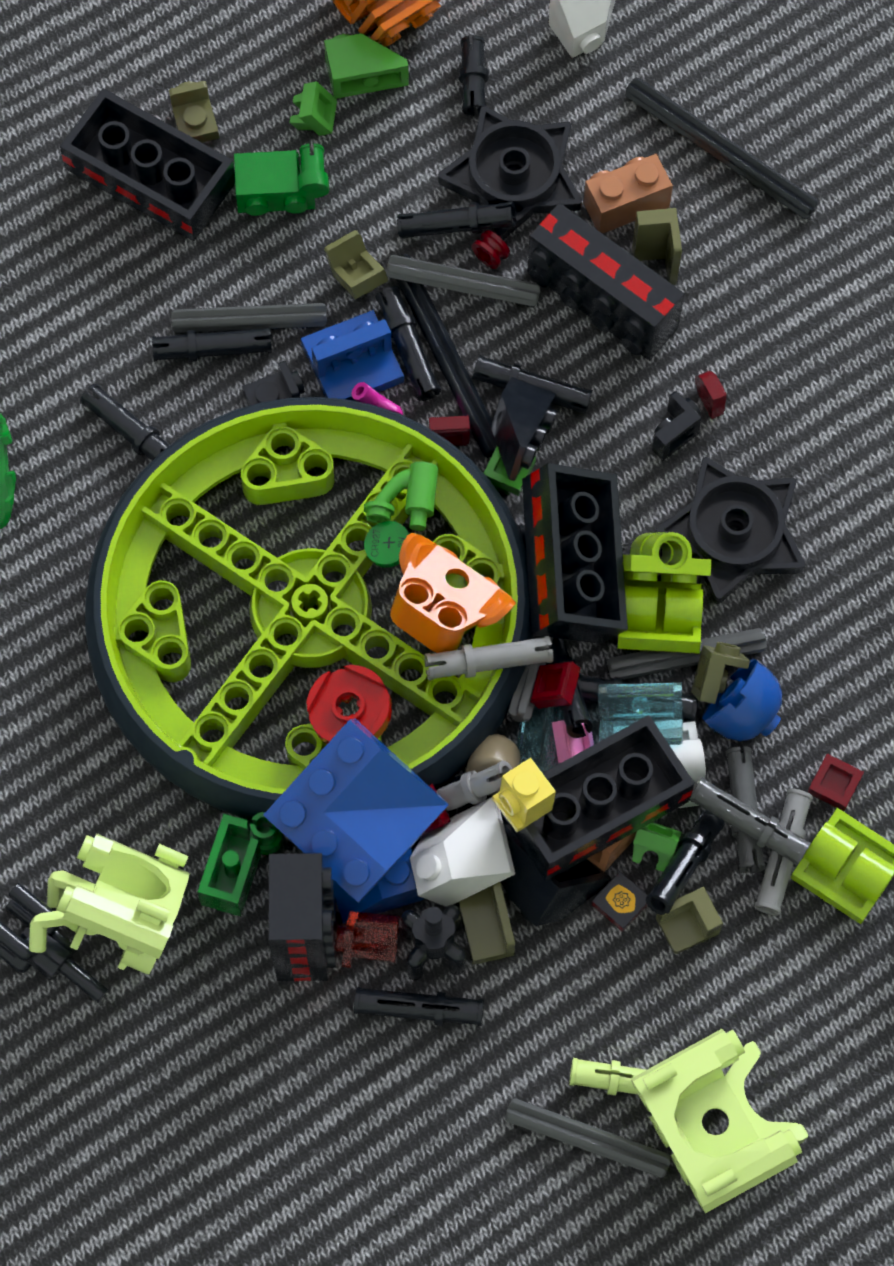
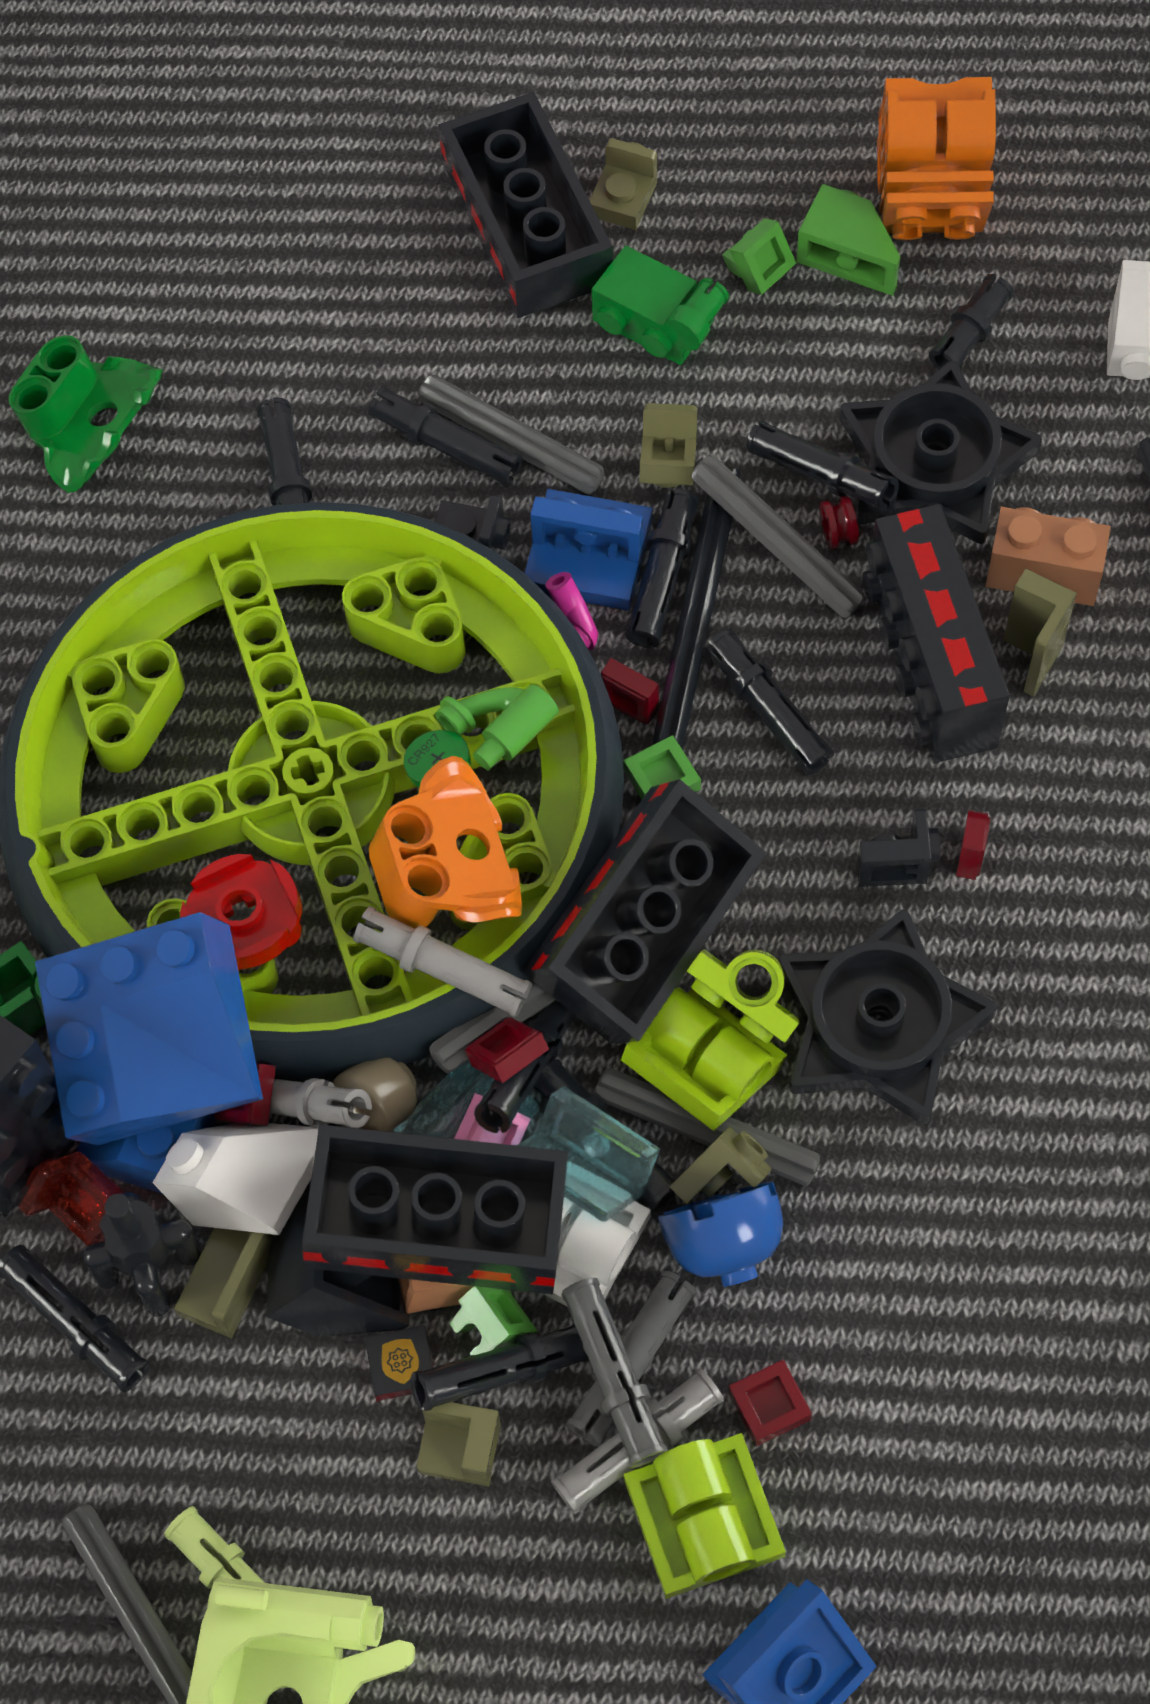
camera: 40 degrees right, 5 degrees down
(522, 424) = (716, 729): black slope -> none
(524, 795) = (329, 1138): light yellow brick -> none

